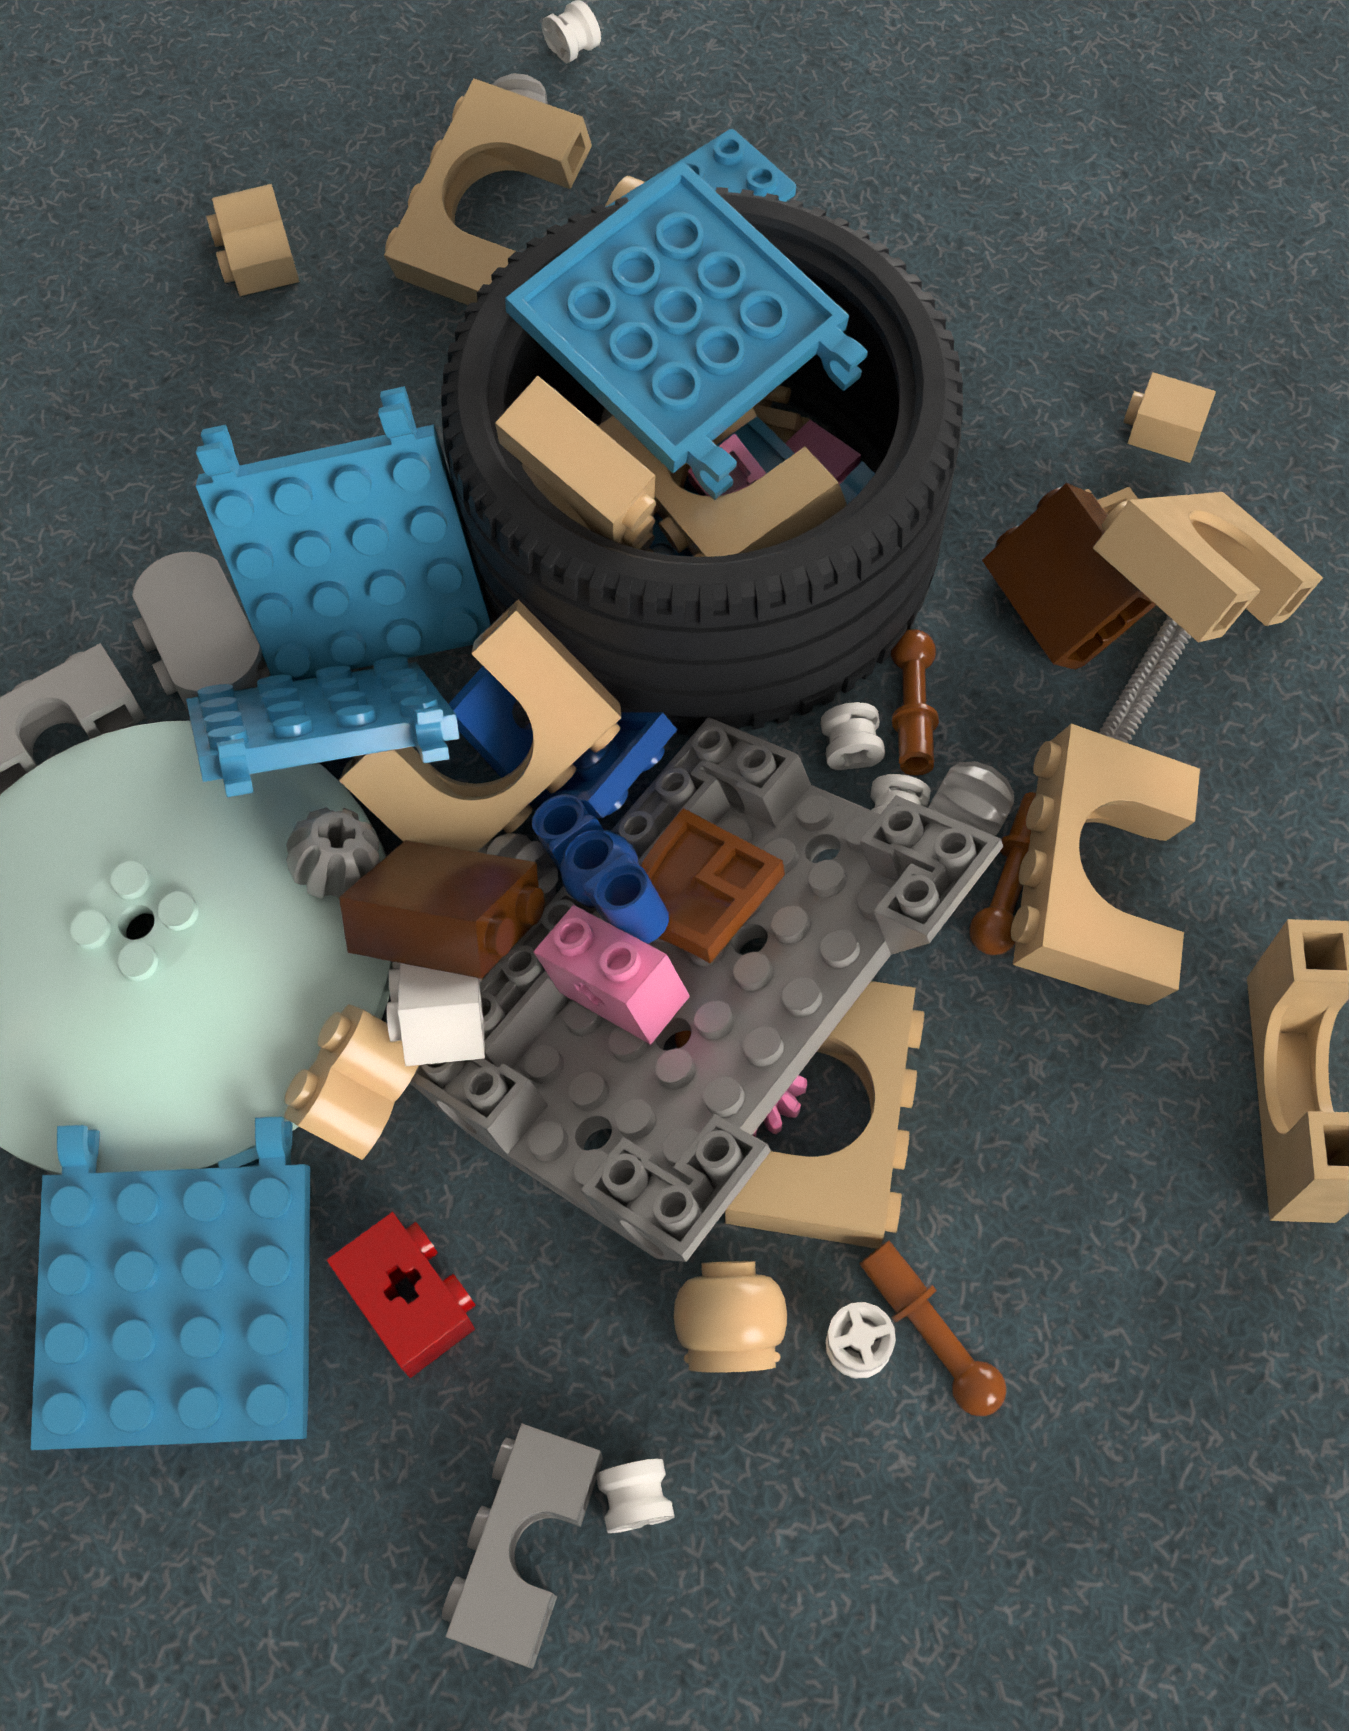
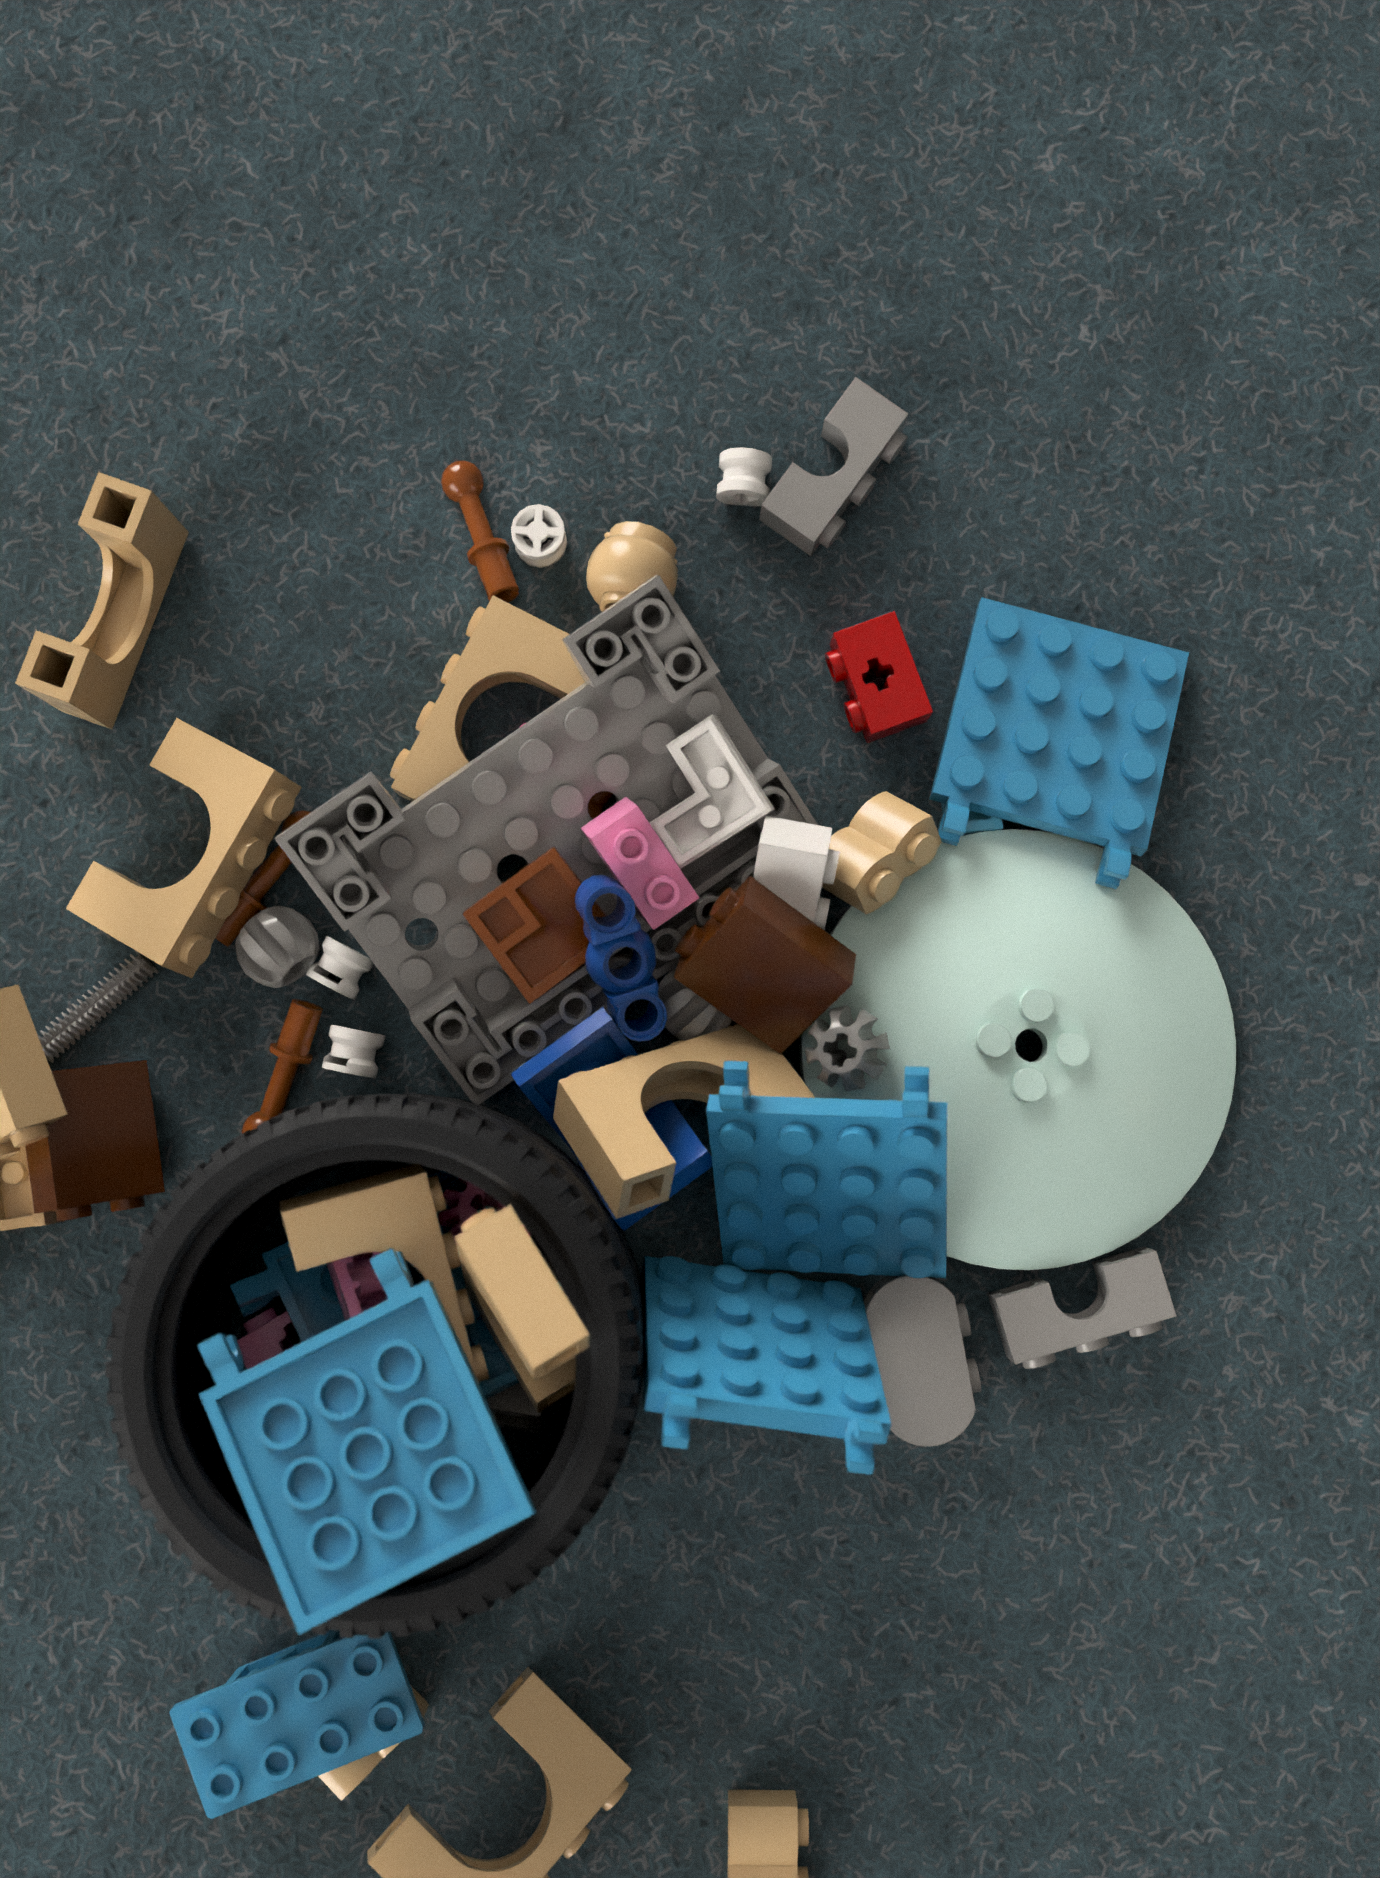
camera: 165 degrees left, 20 degrees up
(541, 1072) = (724, 796): none -> white tile

